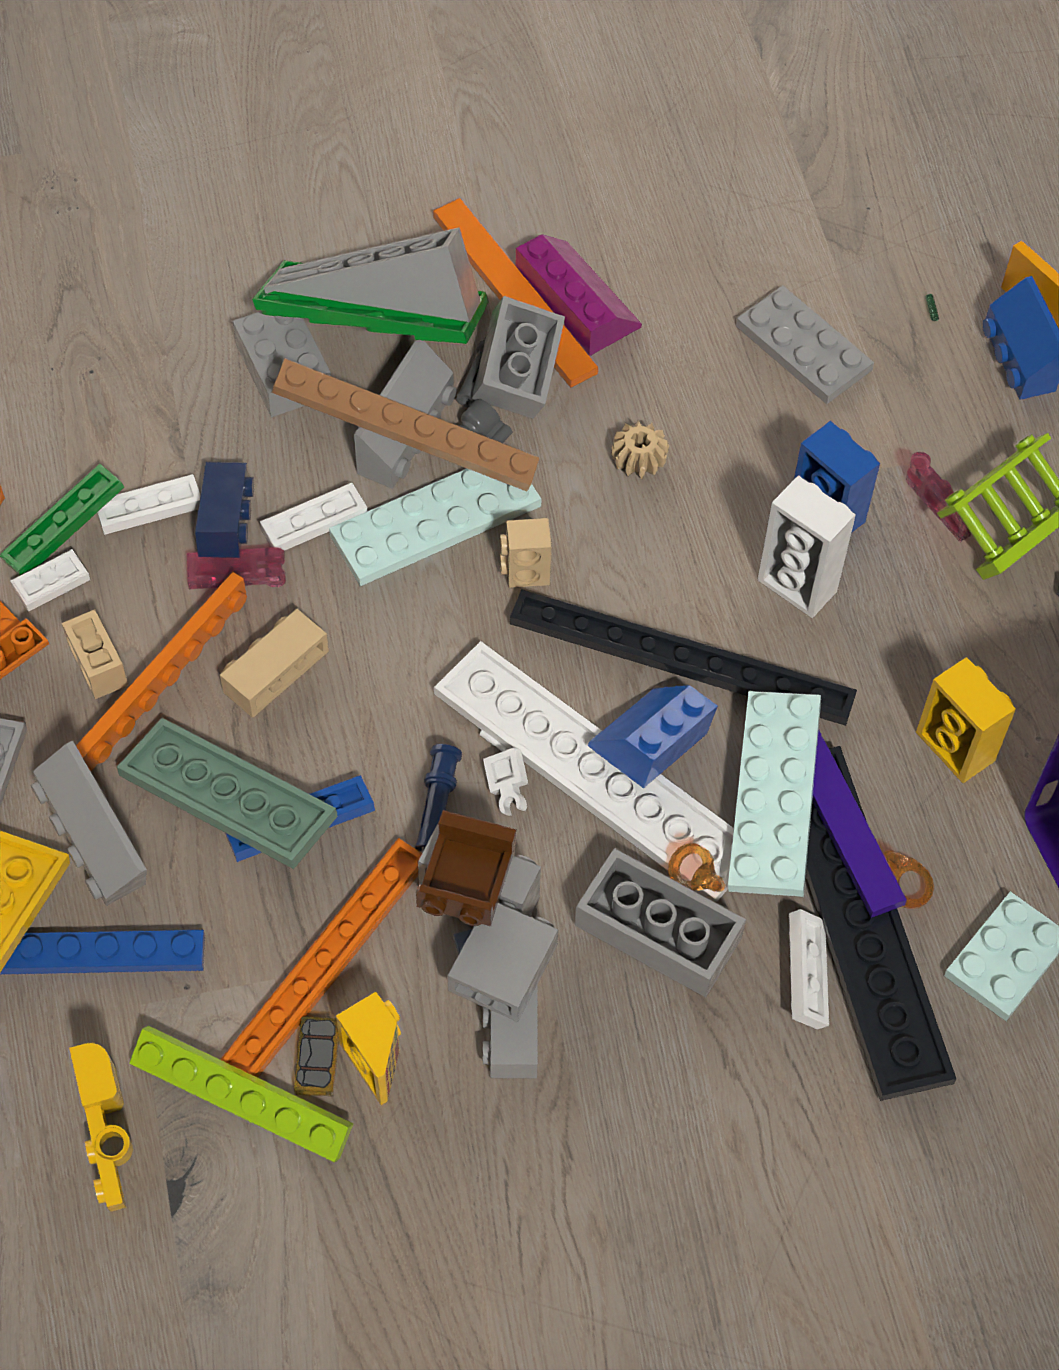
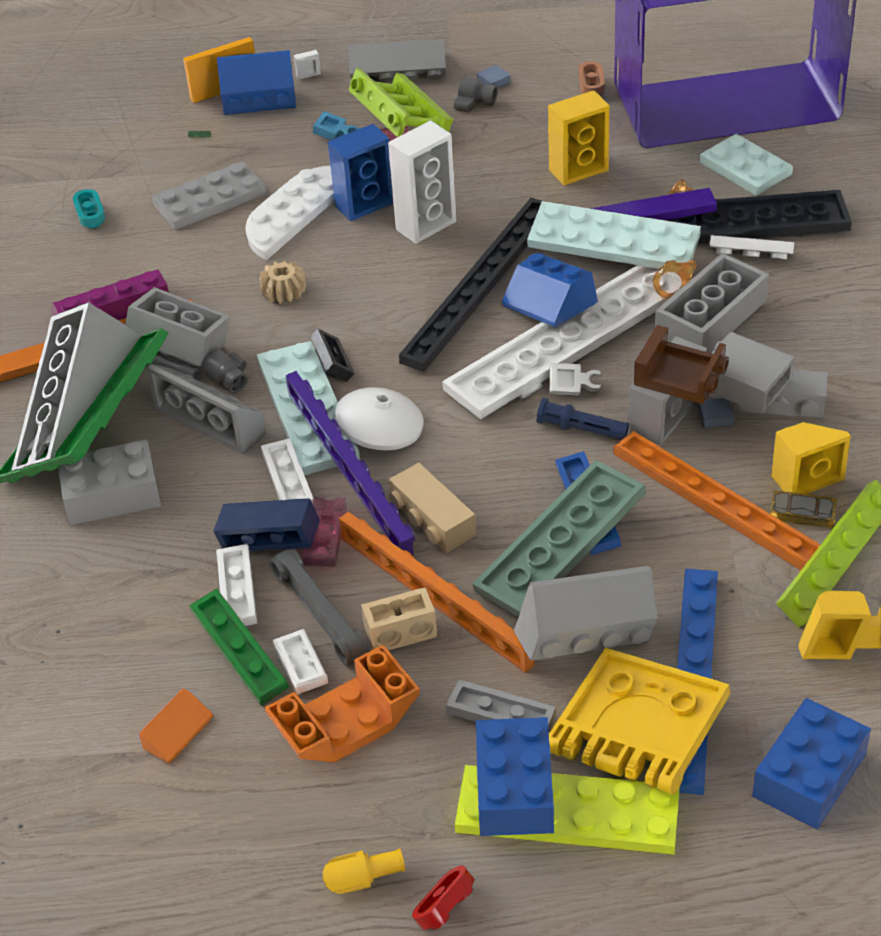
camera: 75 degrees left, 15 degrees down
(172, 547) = (347, 643): none -> dark grey piece
(318, 566) = (344, 456): none -> dark purple plate
(405, 425) = (231, 383): medium nougat plate -> none
(410, 608) = (379, 418): none -> white dish
(495, 524) = (332, 355): none -> black plate
(526, 552) = (371, 340): tan brick -> none
(743, 230) = (89, 208): none -> teal plate
(779, 425) = (289, 210): none -> white plate
(968, 444) = (332, 126): none -> dark azure plate

